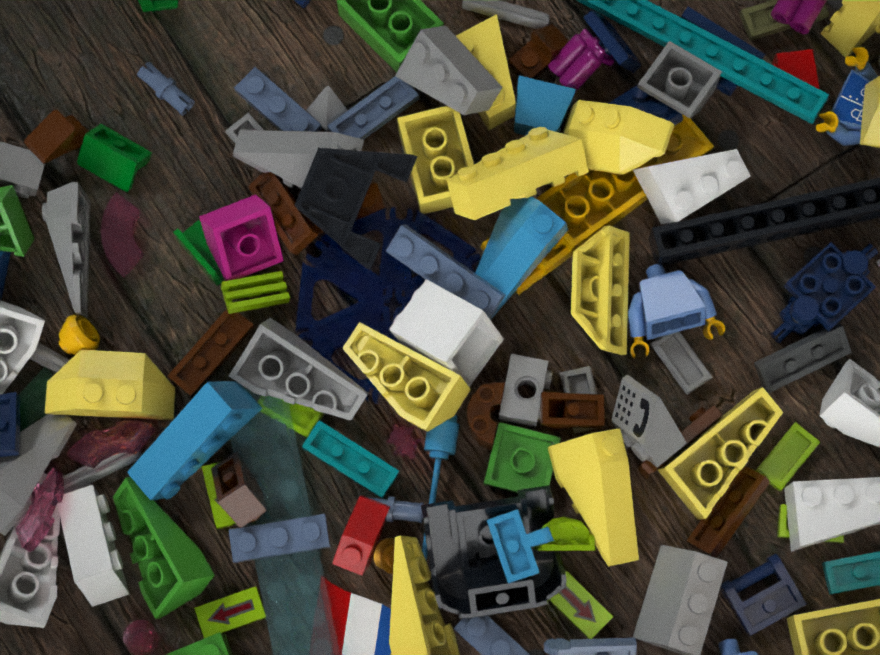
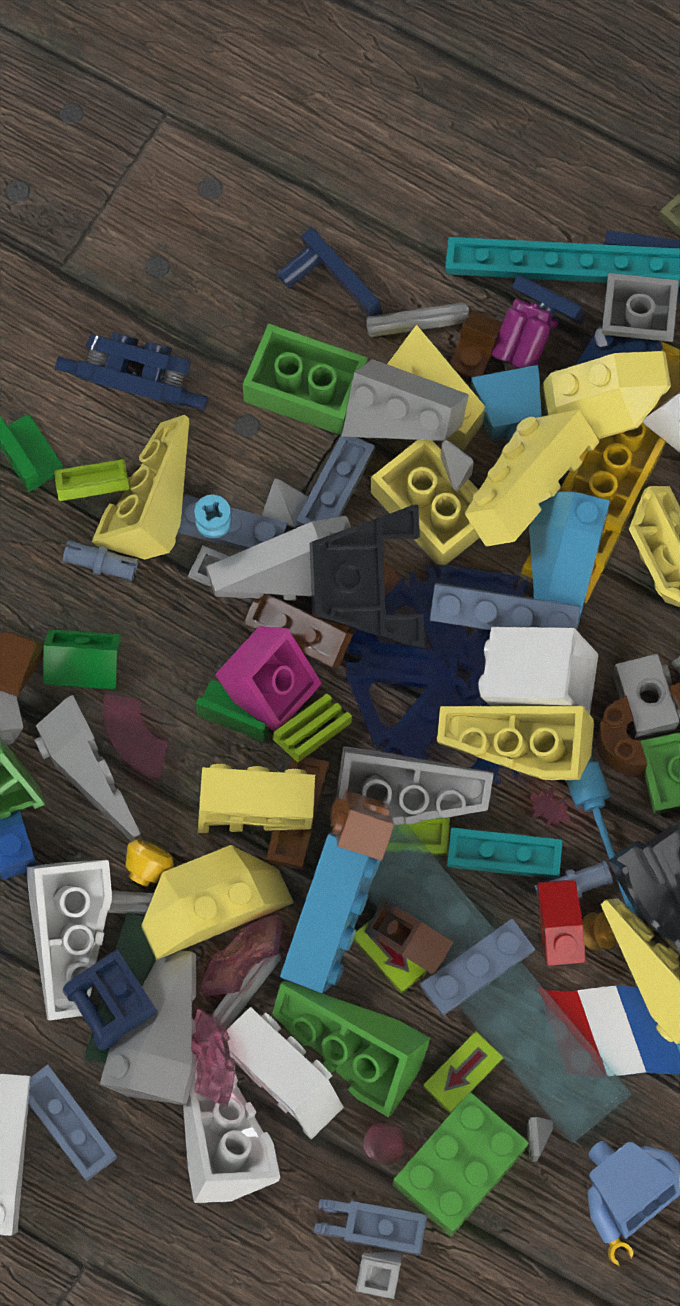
camera: 30 degrees left, 5 degrees down
(177, 326) = (255, 798): none -> light yellow wedge
(191, 23) = (91, 480): none -> lime tile
(223, 66) = (151, 511): none -> light yellow wedge
(236, 386) = (361, 824): none -> dark orange arch
(264, 100) = (212, 525): none -> medium azure wheel
(465, 139) = (457, 464): none -> light grey slope

